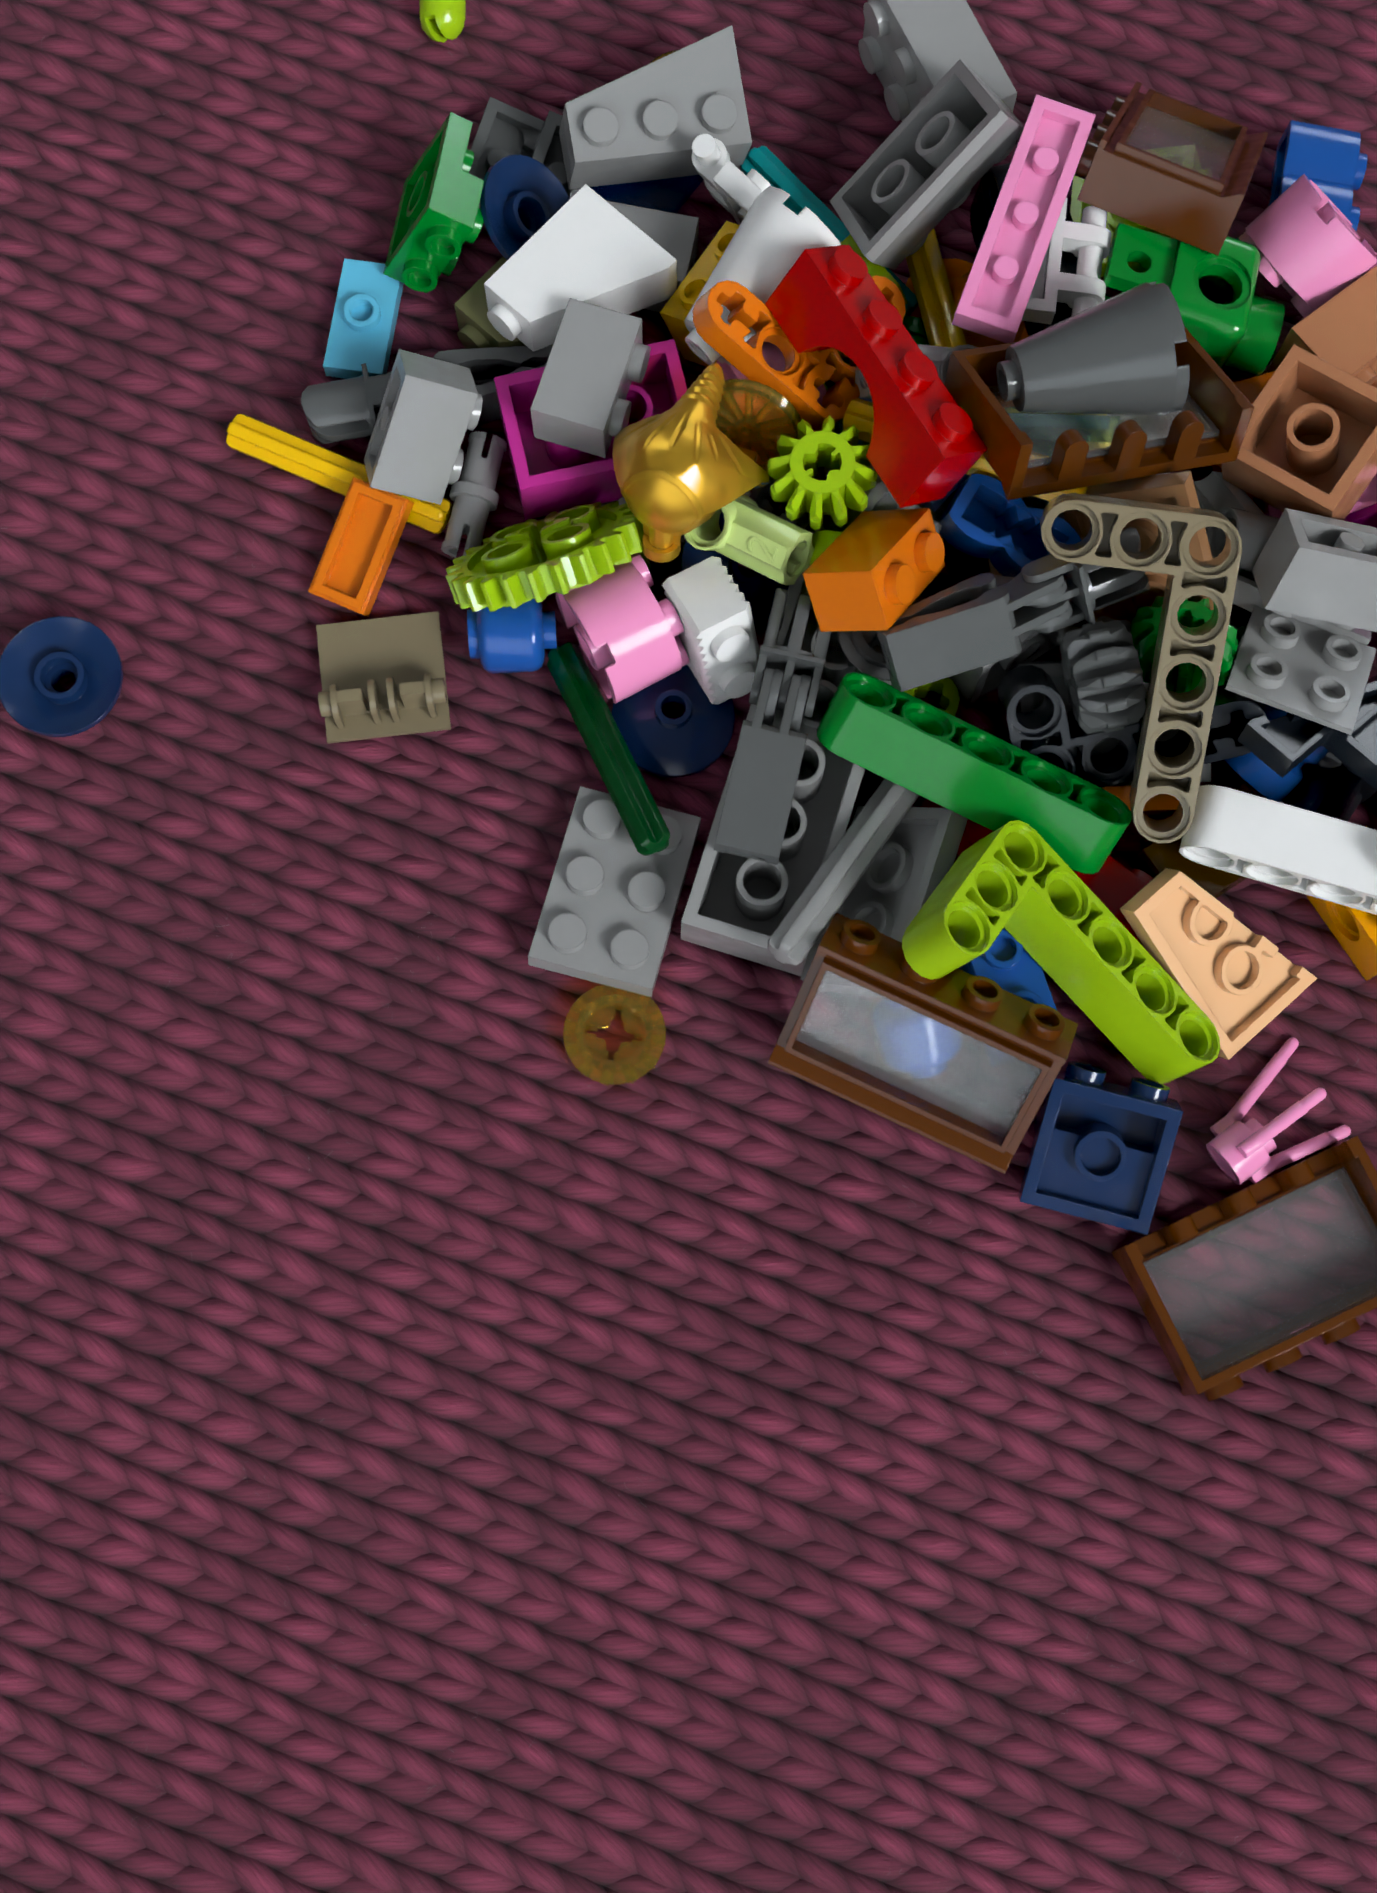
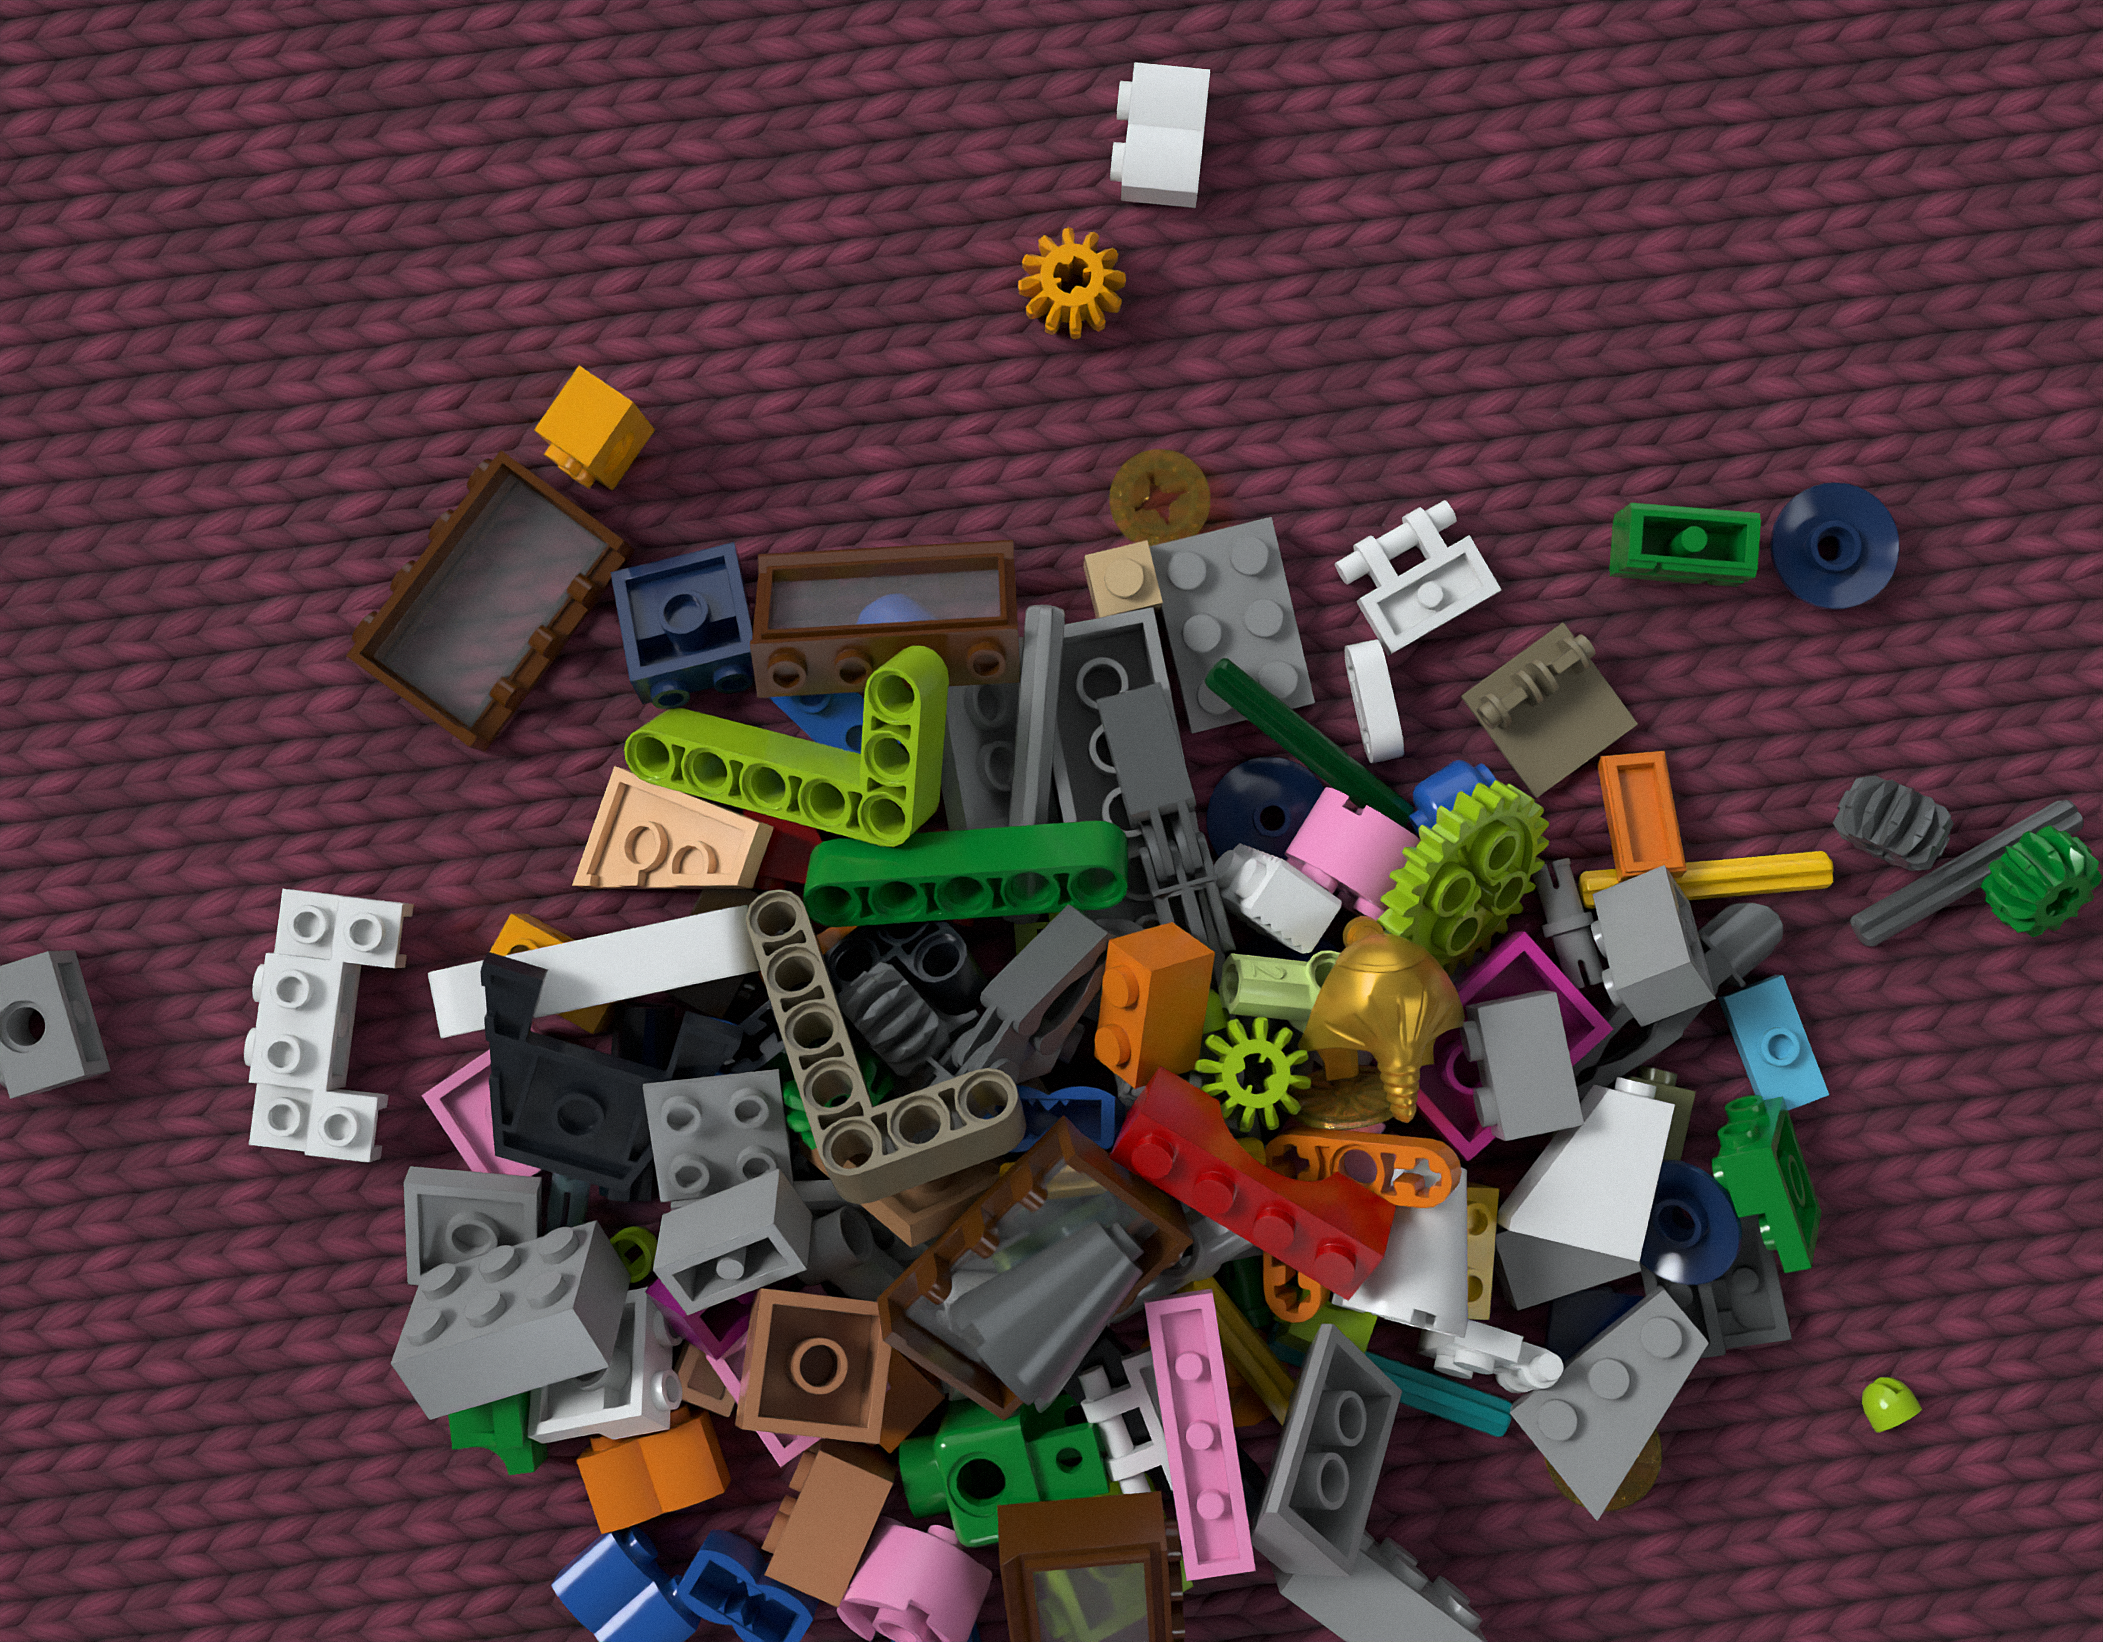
camera: 150 degrees right, 10 degrees up
(69, 320) = (2041, 881): none -> green gear
(121, 368) = (1954, 878): none -> dark grey axle
(160, 426) = (1893, 823): none -> dark grey gear
(187, 739) = (1685, 544): none -> green brick
(421, 1364) = (1163, 134): none -> white brick
(428, 825) = (1427, 594): none -> white plate
(528, 759) = (1374, 701): none -> white beam
(590, 1247) = (1059, 265): none -> light orange gear
(691, 971) = (1122, 580): none -> tan brick
(1103, 1363) = (593, 431): none -> light orange brick
(1245, 1147) = (558, 696): bright pink plant -> none

